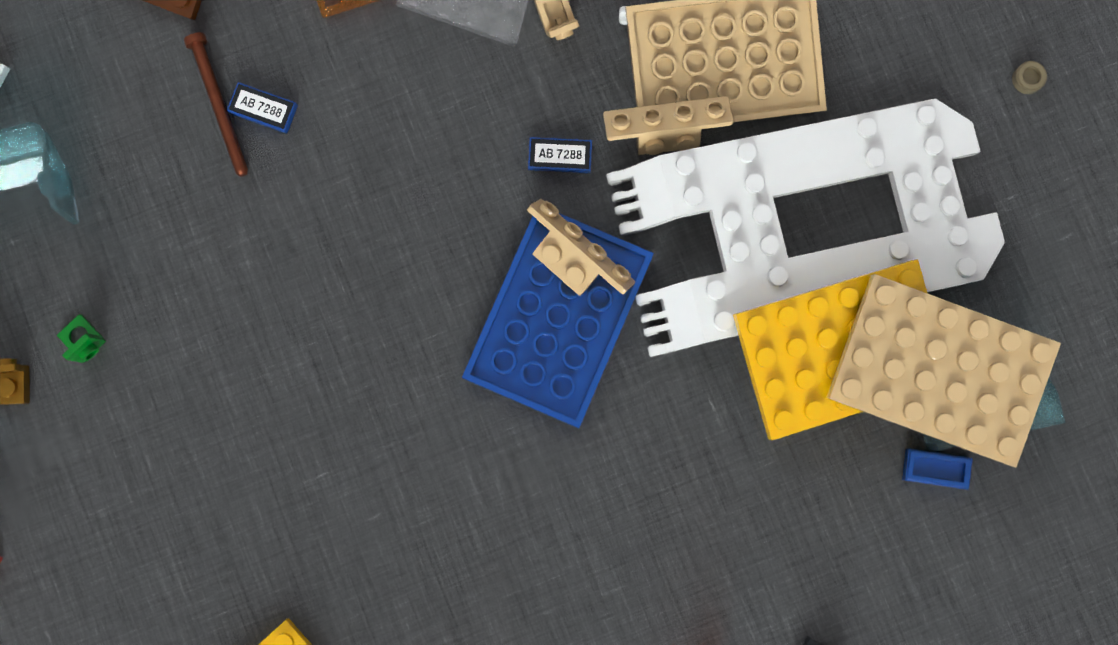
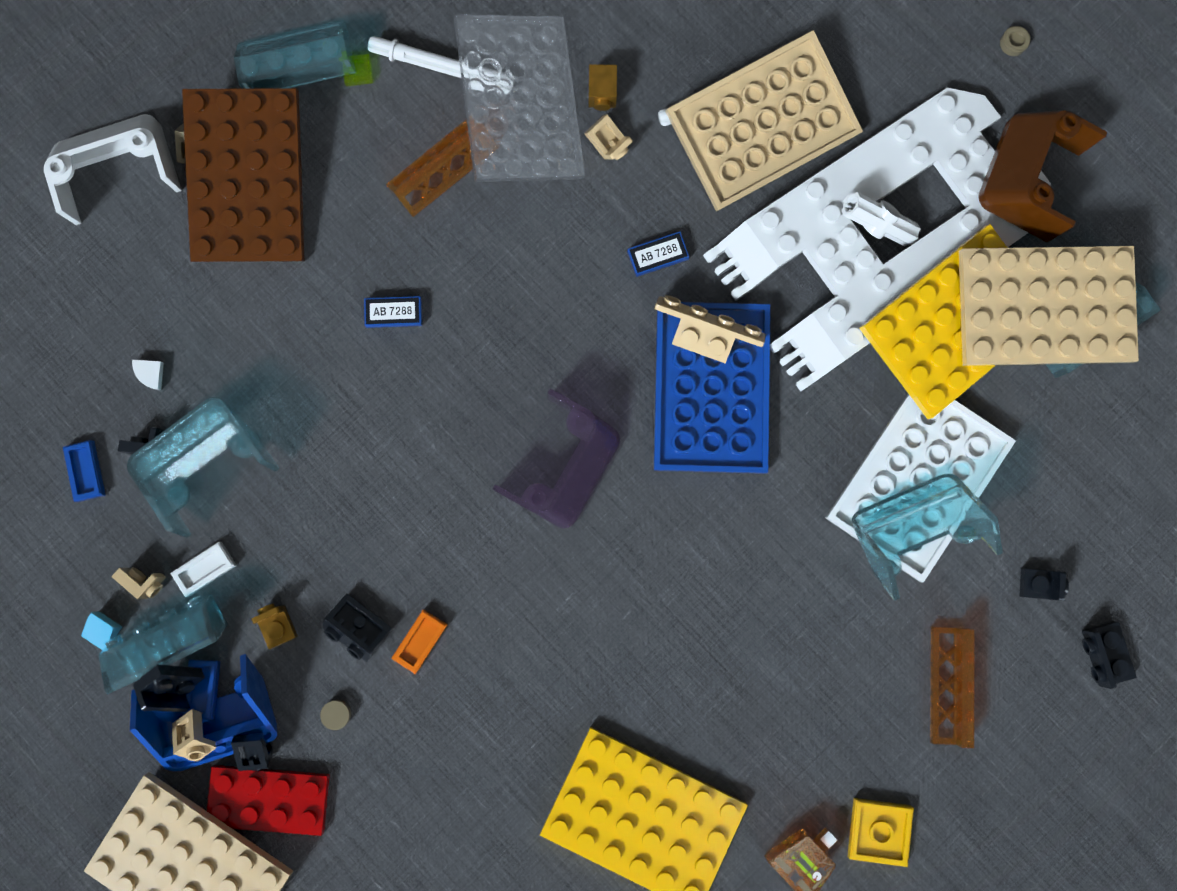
camera: 25 degrees left, 0 degrees up
(33, 499) = (335, 714): none -> dark tan tile
(86, 346) = (330, 569): green bracket -> none
(88, 417) = (355, 628): none -> black bracket
(149, 458) = (419, 641): none -> orange tile
(196, 42) = (315, 279): copper bar -> none
(380, 353) = (581, 474): none -> clear purple windscreen
(668, 125) = (739, 194): tan bracket -> none
(713, 540) = (919, 517): none -> clear light blue windscreen
(735, 504) = (918, 450): none -> white plate
(805, 209) = (880, 219): none -> white piece
(937, 469) = (1070, 389): blue tile -> none
(958, 225) = (1012, 180): none -> reddish brown windscreen

